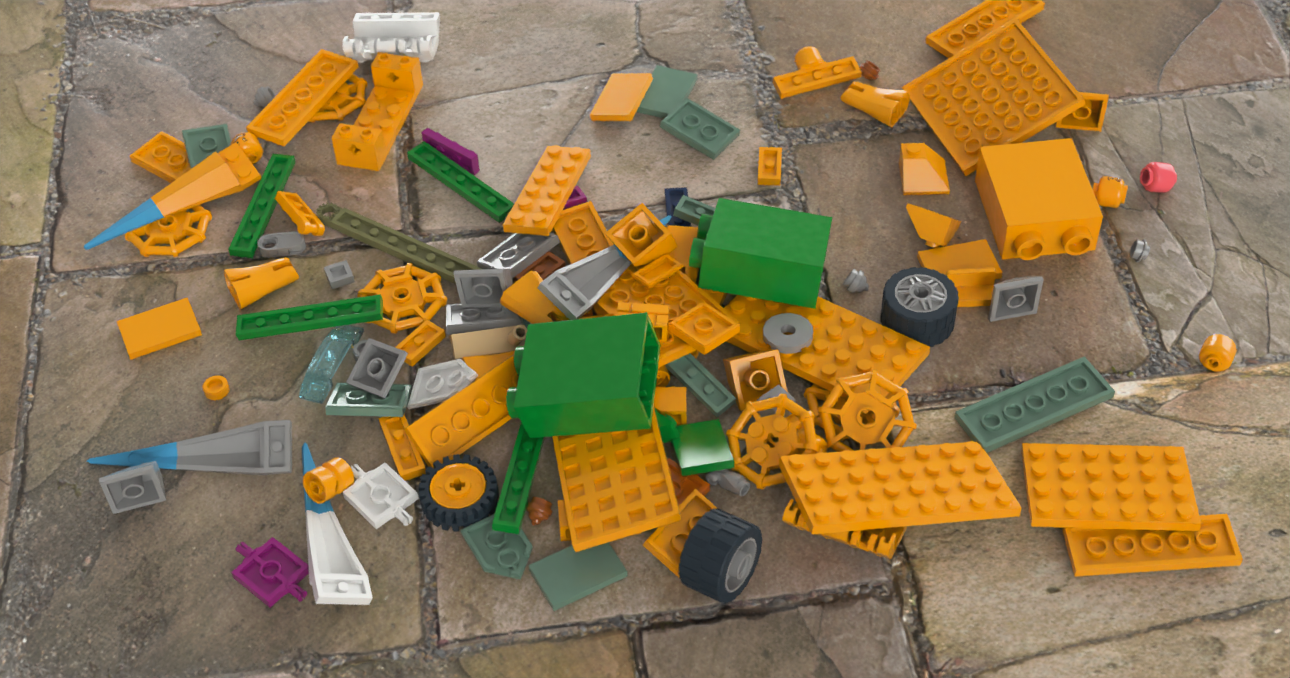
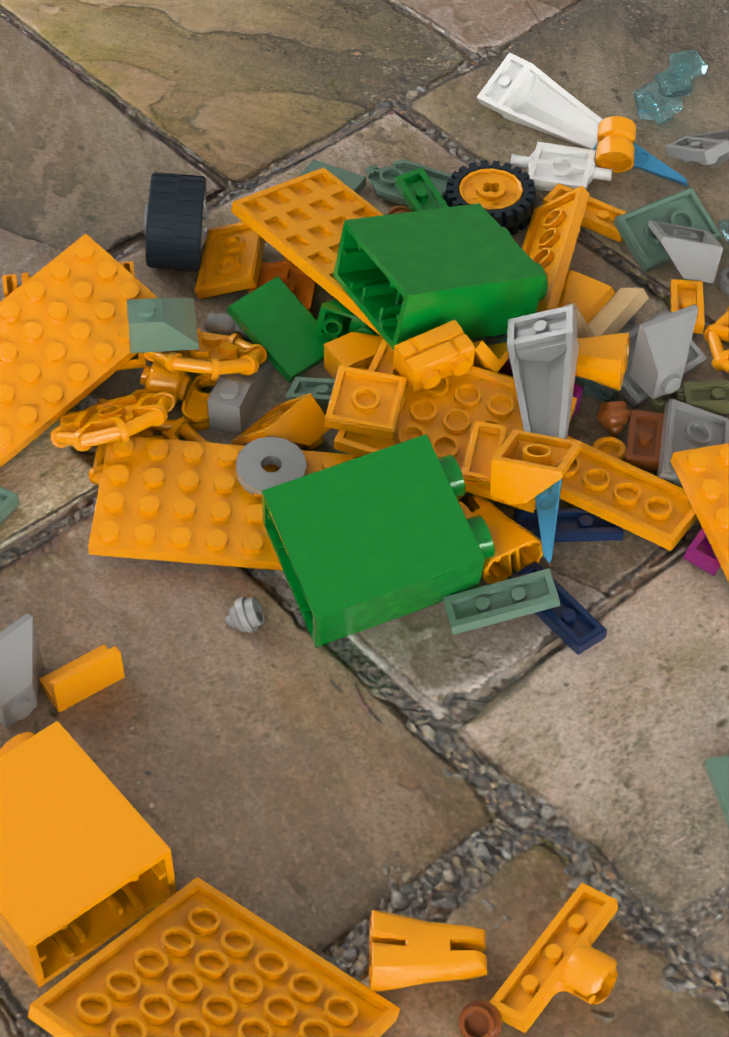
camera: 145 degrees right, 0 degrees up
(176, 553) = (677, 78): none -> clear light blue tile
(250, 513) = (653, 106): none -> clear light blue bracket
(271, 572) = (591, 81): magenta plate -> none
(440, 382) = (612, 266): white tile -> none
(700, 128) = (648, 755): sand green tile -> none
(769, 166) = (494, 739): light orange plate -> none
(803, 432) = (162, 325): none -> sand green slope
(920, 305) = (132, 594): black wheel -> none
(922, 170) = (262, 851): light orange slope -> none
(932, 226) = (193, 751): light orange slope -> none
(960, 256) = (123, 714): light orange tile -> none

